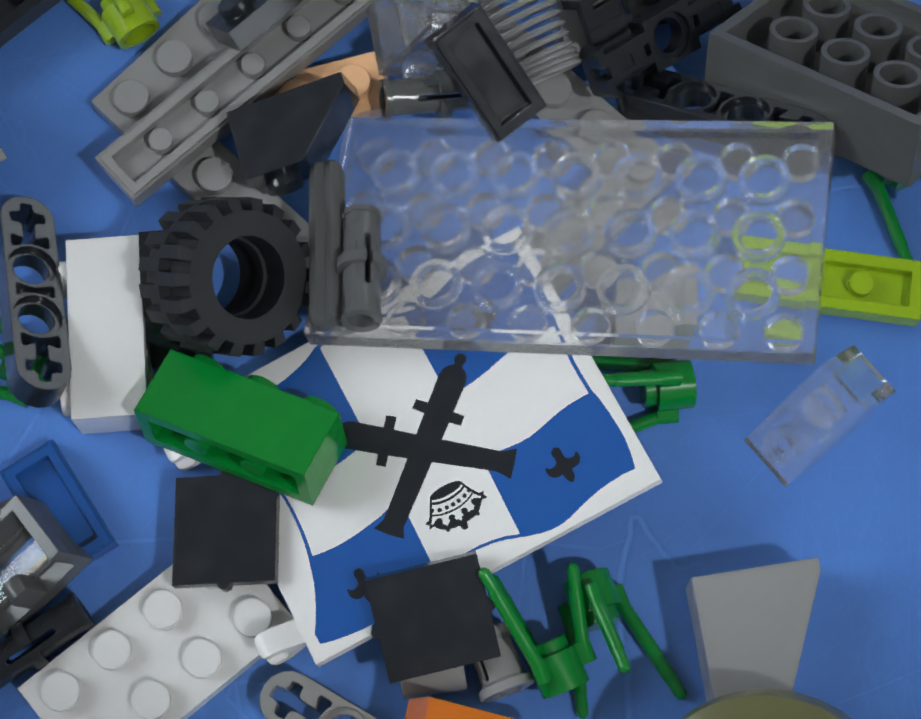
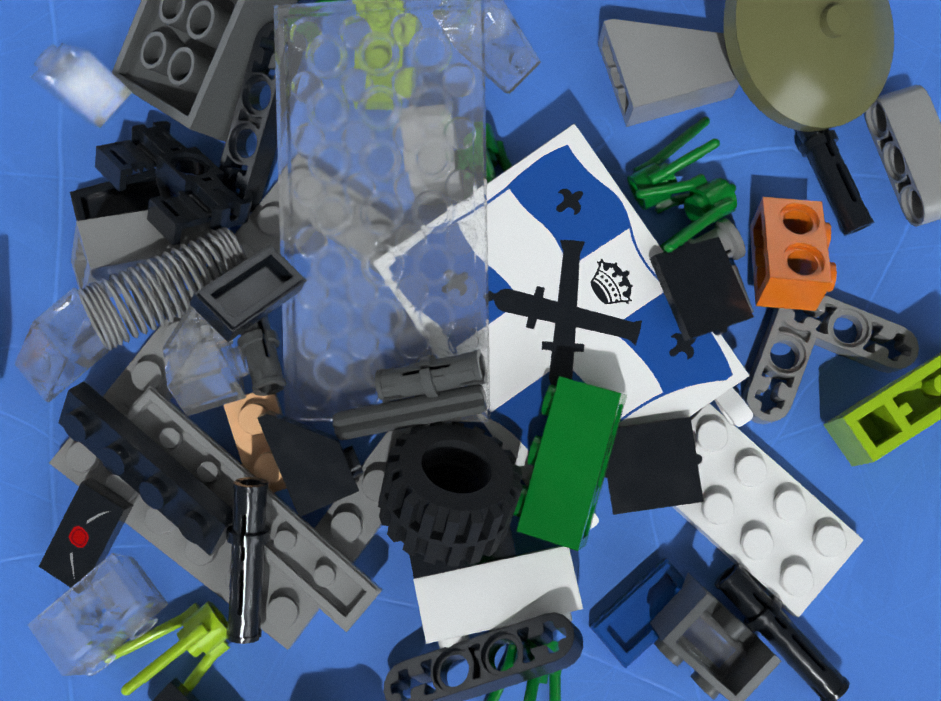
camera: 100 degrees left, 5 degrees up
(212, 58) = (248, 537): none -> black pin

